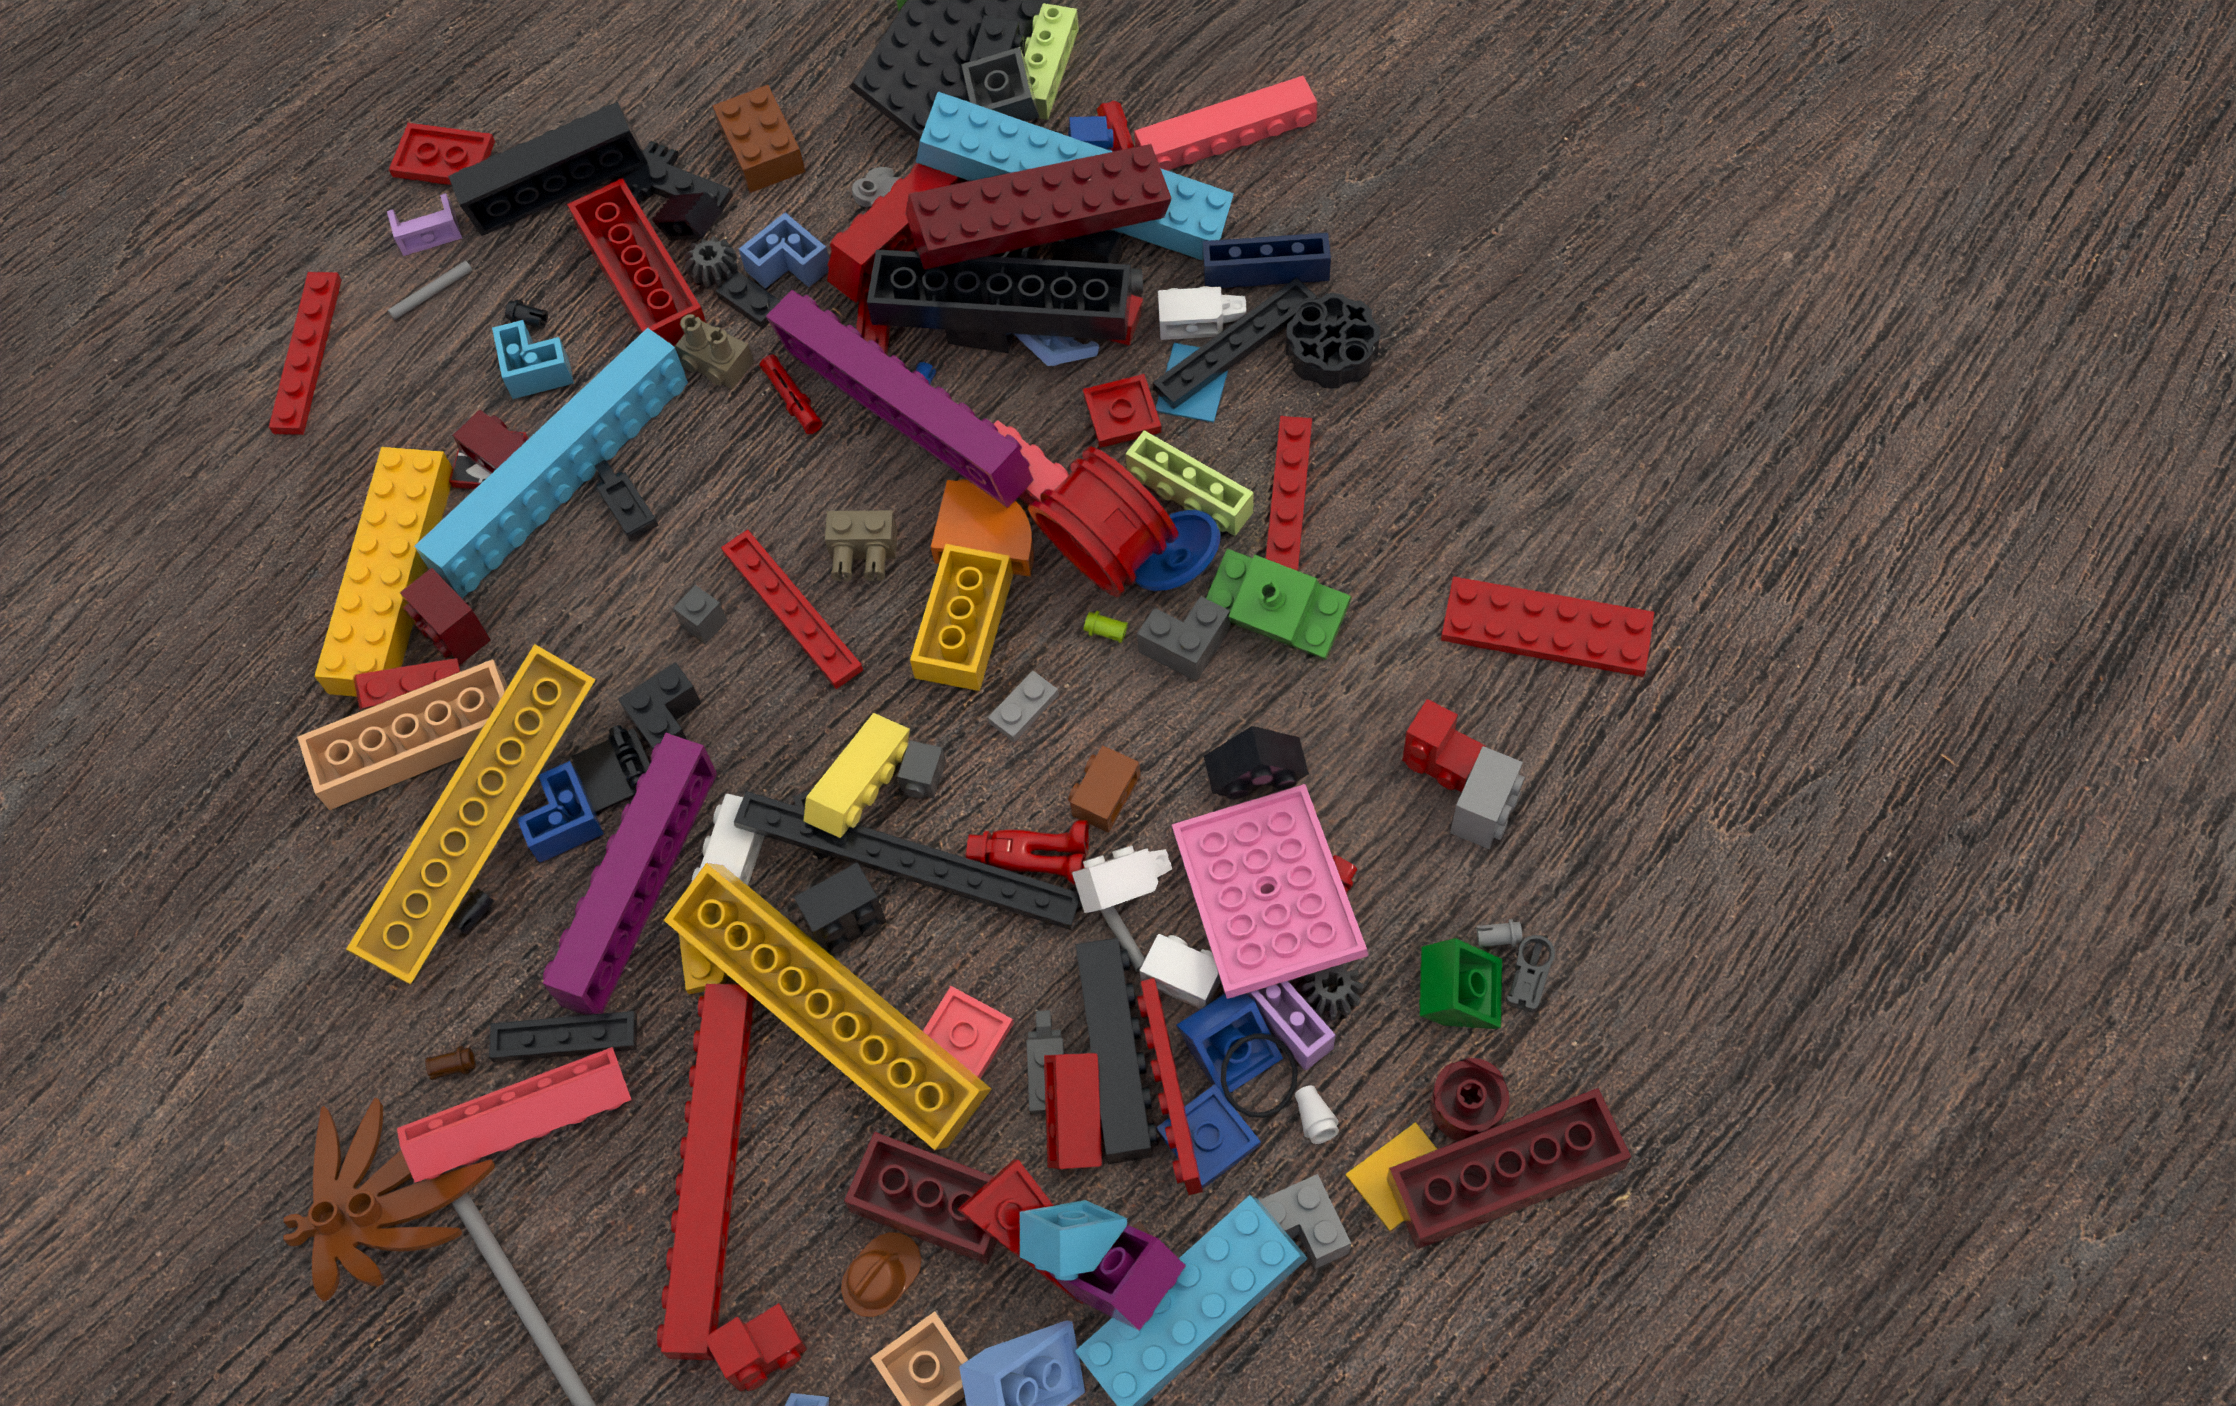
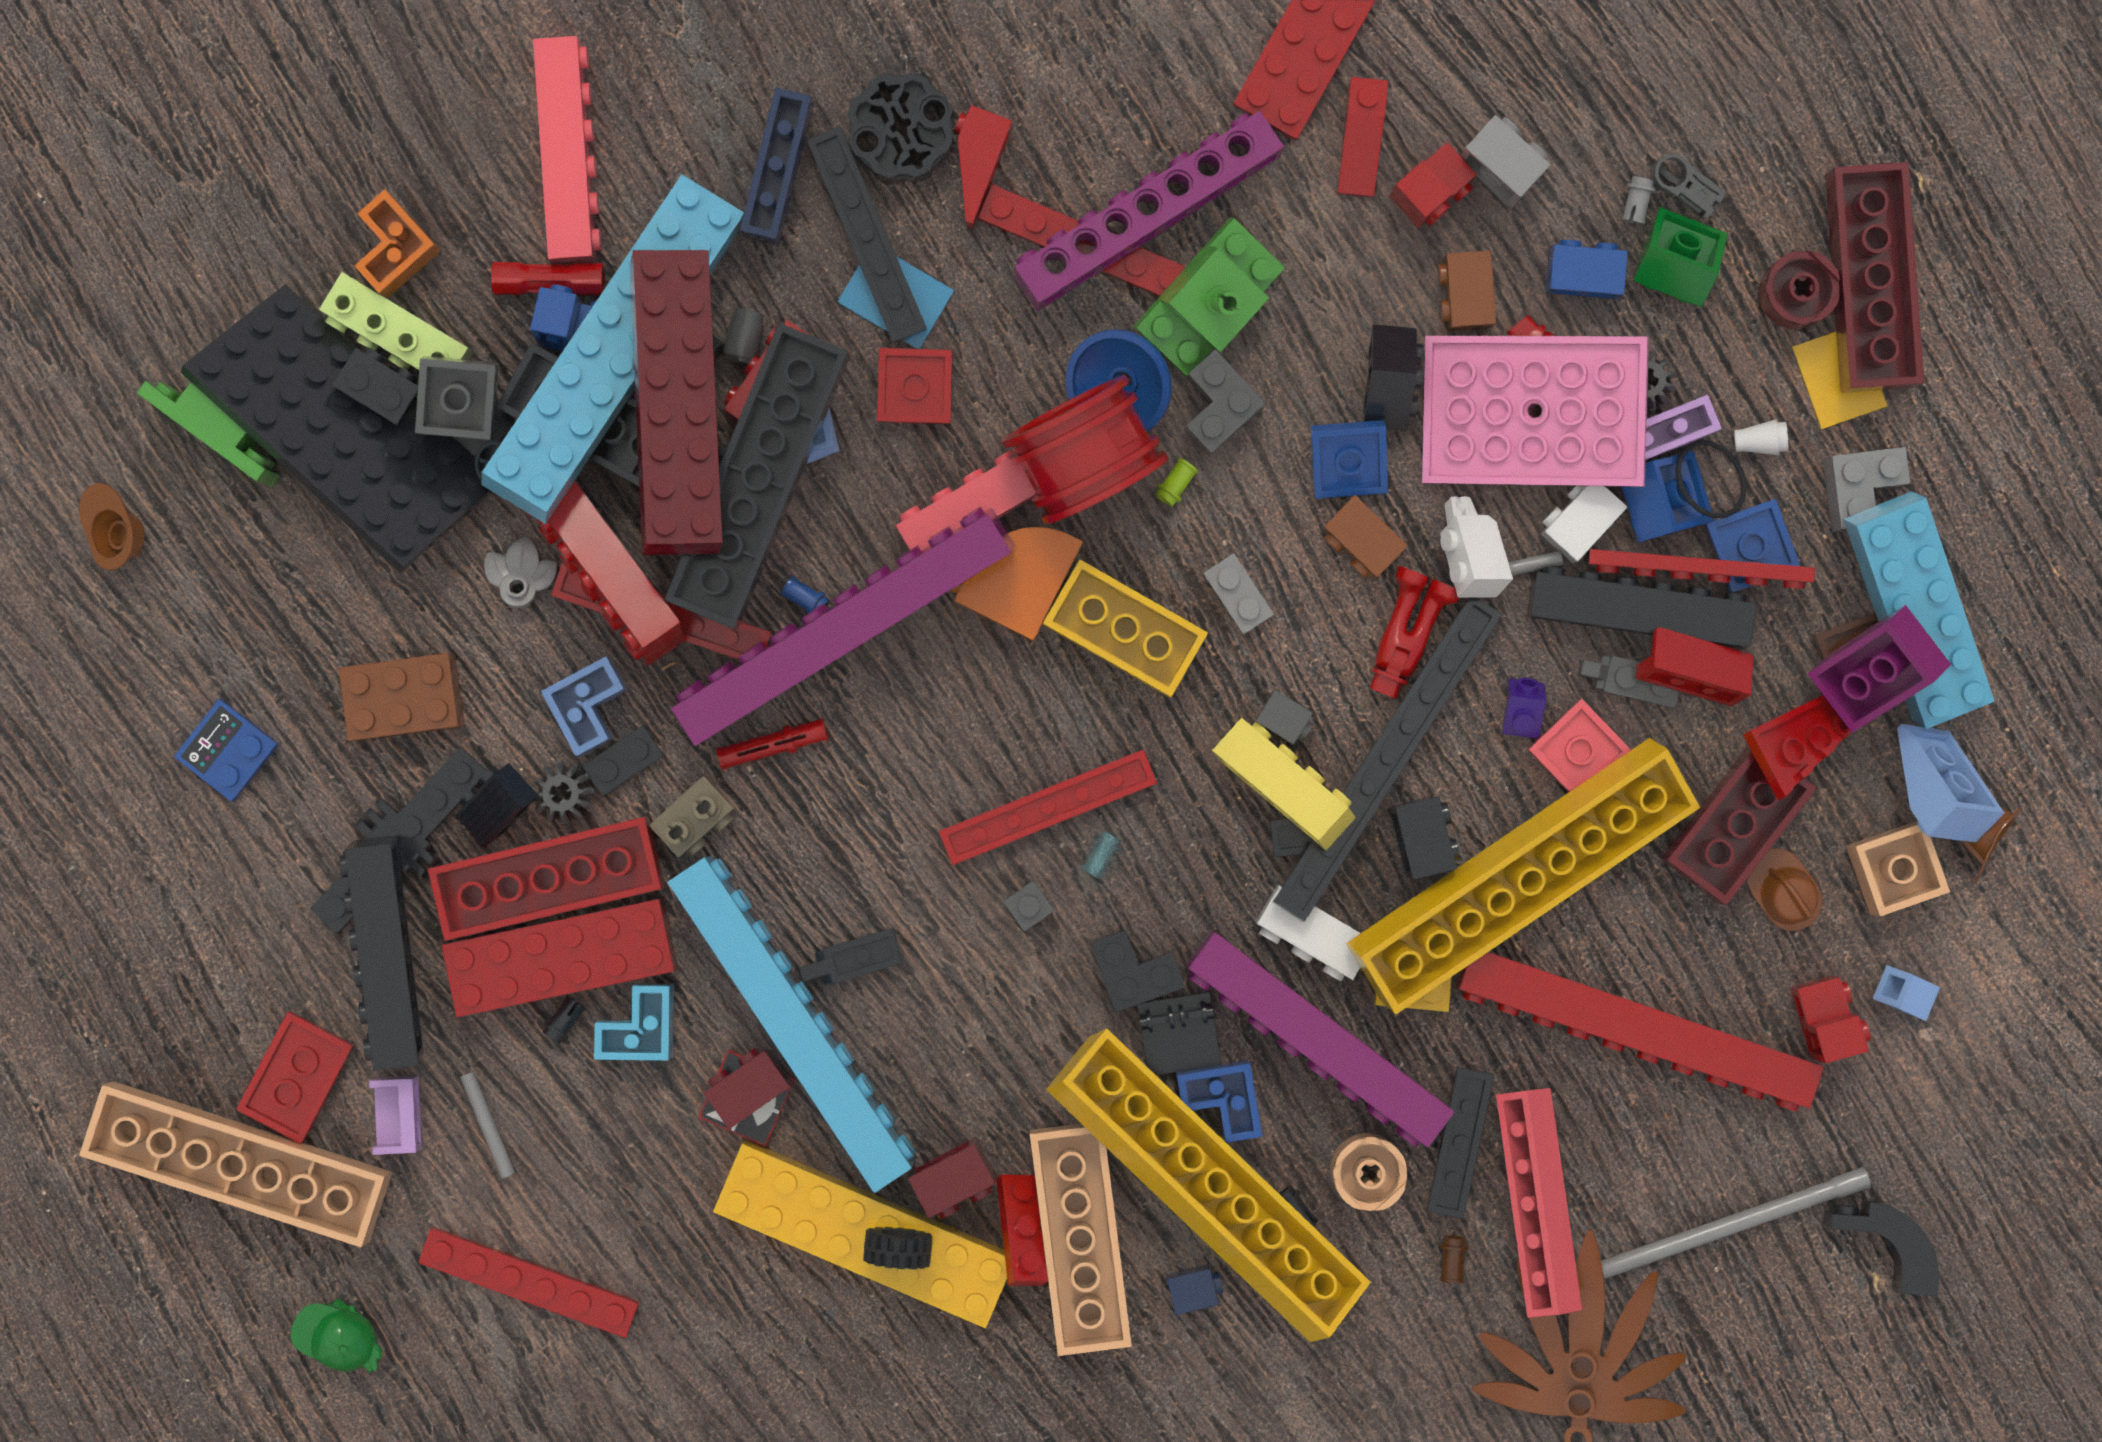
camera: 75 degrees left, 25 degrees up
(237, 231) = (336, 1337): none -> green hair
(363, 133) = (235, 1163): none -> light nougat brick
(367, 572) = (897, 1248): none -> black tyre
(381, 842) = (1194, 1289): none -> dark blue brick
(497, 954) = (1368, 1193): none -> light nougat brick
(573, 291) = (559, 957): none -> red brick
(689, 50) = (226, 750): none -> blue plate
(761, 661) = (1101, 854): none -> clear light blue pin
(860, 536) = (984, 713): dark tan brick -> none
(990, 972) = (1524, 708): none -> dark purple bracket
(1068, 1237) = (1838, 702): medium azure slope -> none
(1112, 41) = (402, 246): none -> orange brick
(1171, 752) = (1349, 459): none -> blue plate
(1189, 482) = (1040, 341): yellowish green brick -> none
(1197, 312) = (813, 265): white hinge -> none
(1329, 401) = (980, 150): none -> red slope
(1336, 545) = (1045, 287): none -> magenta brick
(1359, 810) = (1467, 290): none -> dark orange brick
(1415, 906) = (1586, 270): none -> blue brick
(1469, 682) = (1362, 136): none -> red slope

